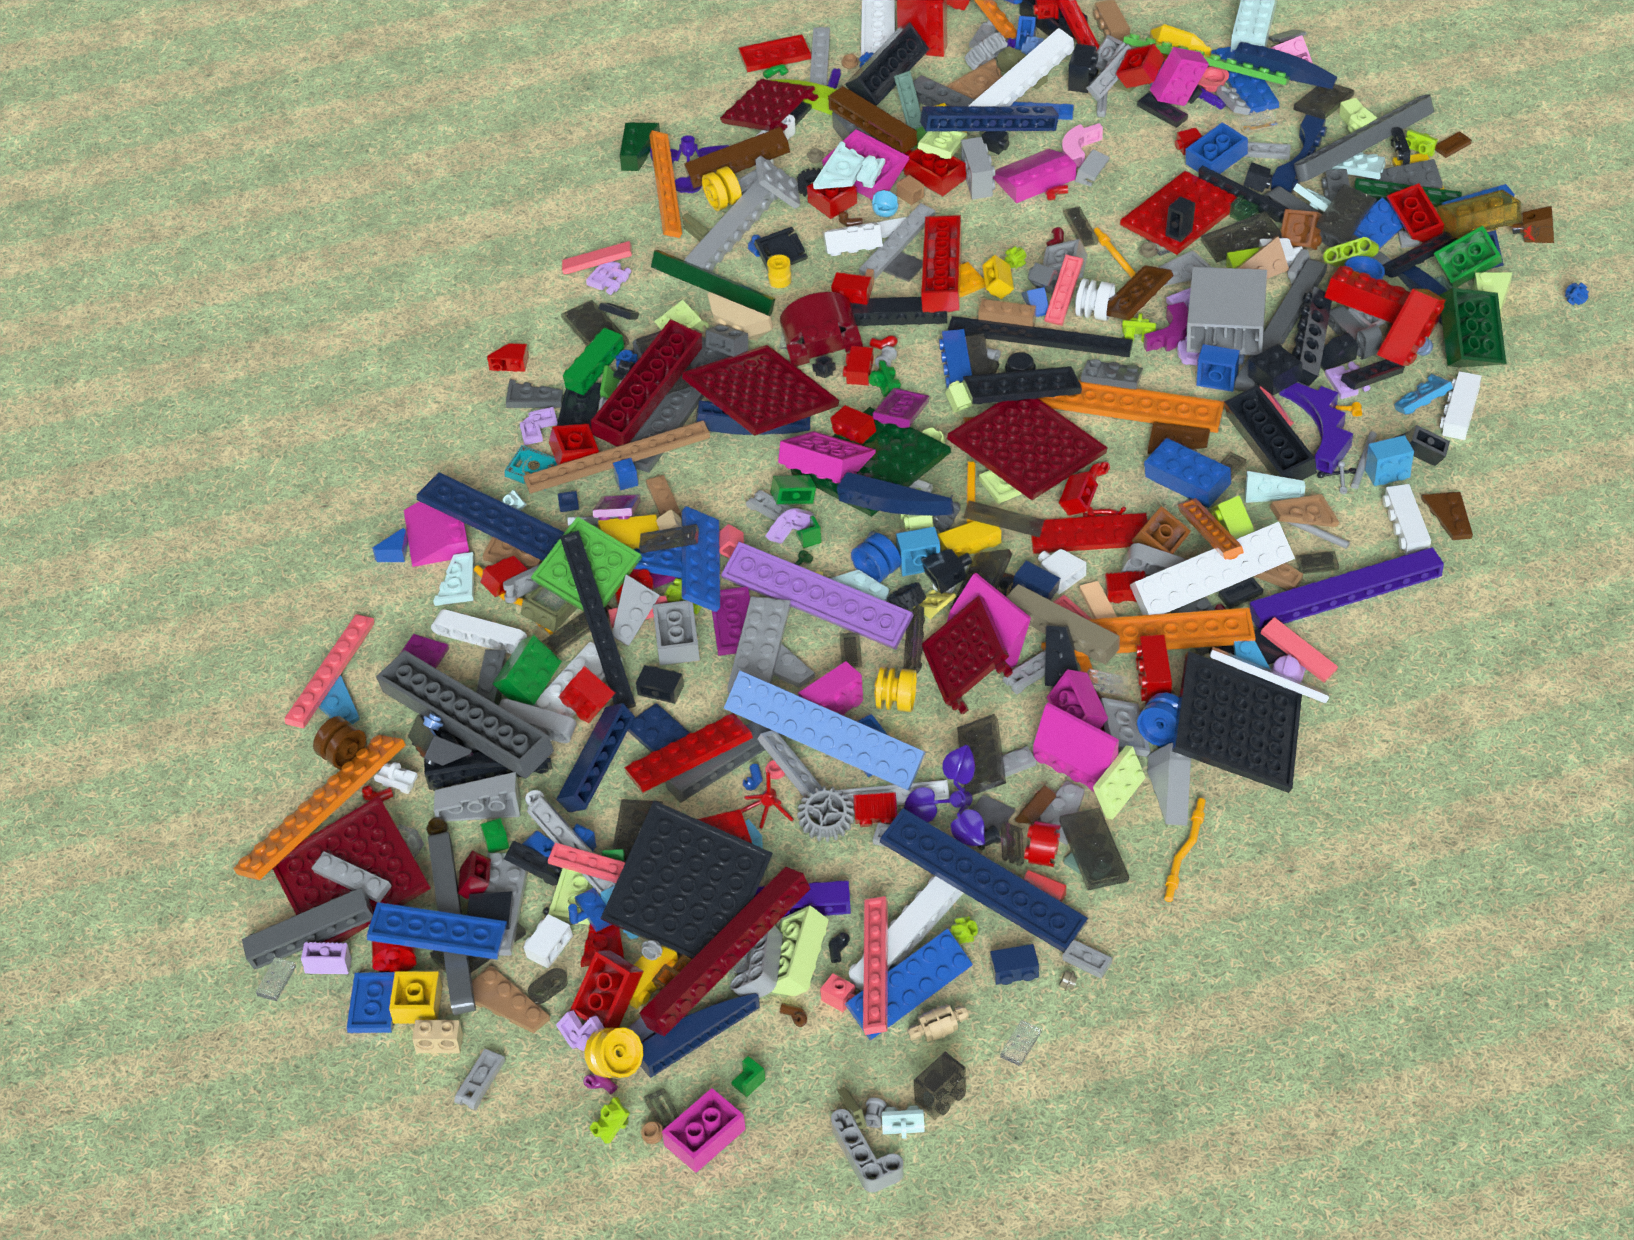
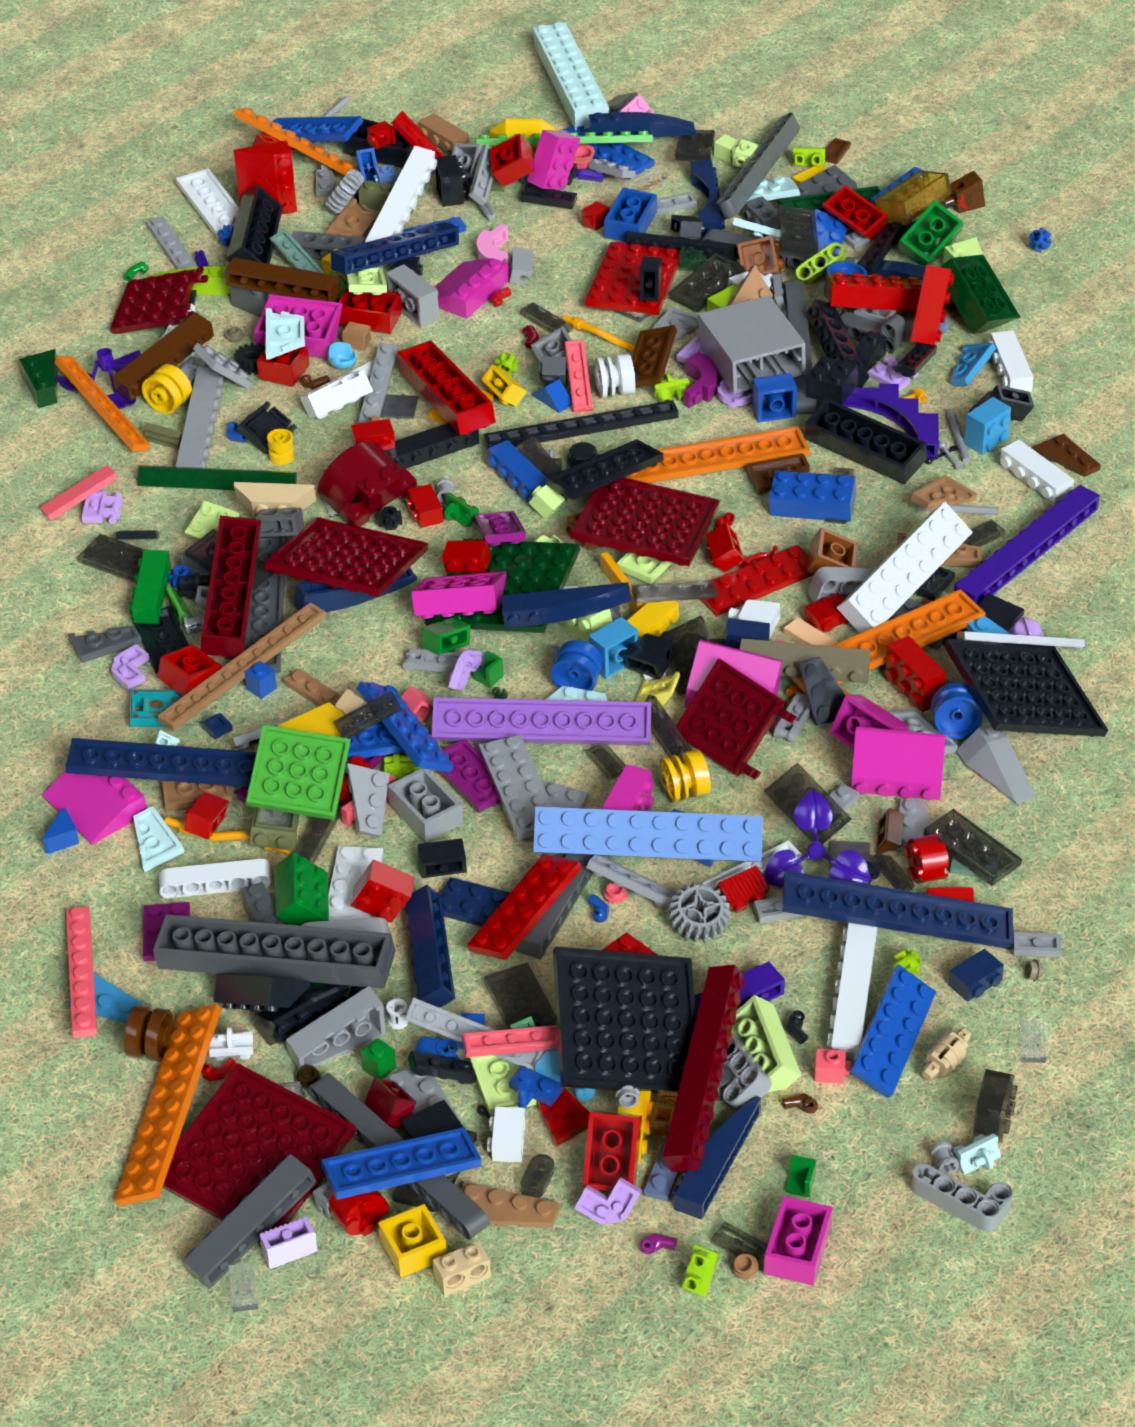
camera: 30 degrees left, 5 degrees down
(351, 876) = (260, 1152): light grey plate -> none
(371, 1003) = (366, 1266): blue plate -> none
(433, 721) = (250, 968): medium blue plate -> none
(479, 1079) = (533, 1290): light grey plate -> none
(509, 358) = (53, 614): red slope -> none
(519, 585) = (233, 814): light grey plate -> none
(597, 619) = (336, 809): black plate -> none
(613, 1052) = (663, 1204): yellow wheel -> none
(614, 506) = (280, 709): plate -> none
(768, 799) = (631, 921): red plant -> none
(774, 53) = (123, 255): red plate -> none
(849, 61) = (206, 241): medium nougat plate -> none
(851, 1105) = (917, 1156): olive tile -> none
(870, 171) = (316, 325): light aqua hips -> none
(875, 965) = (860, 1022): coral plate -> none
(888, 341) = (432, 479): red arm -> none
(907, 596) = (633, 689): black tyre -> none
(1007, 312) = (537, 413): medium nougat brick -> none
(1109, 682) = (881, 698): clear plate -> none
(1111, 374) = (676, 435): dark grey plate -> none
(1119, 782) = (956, 778): yellowish green plate -> none
(1148, 250) = (626, 320): dark tan plate -> none
(1172, 880) = (1060, 847): light orange bar -> none
(1211, 529) = (885, 531): orange plate -> none
(1233, 517) = (888, 518): lime wedge -> none
(1271, 488) = (898, 483): light aqua wing -> none
(1299, 649) = (1019, 608): coral tile -> none
(1400, 146) = (796, 163): black plate -> none

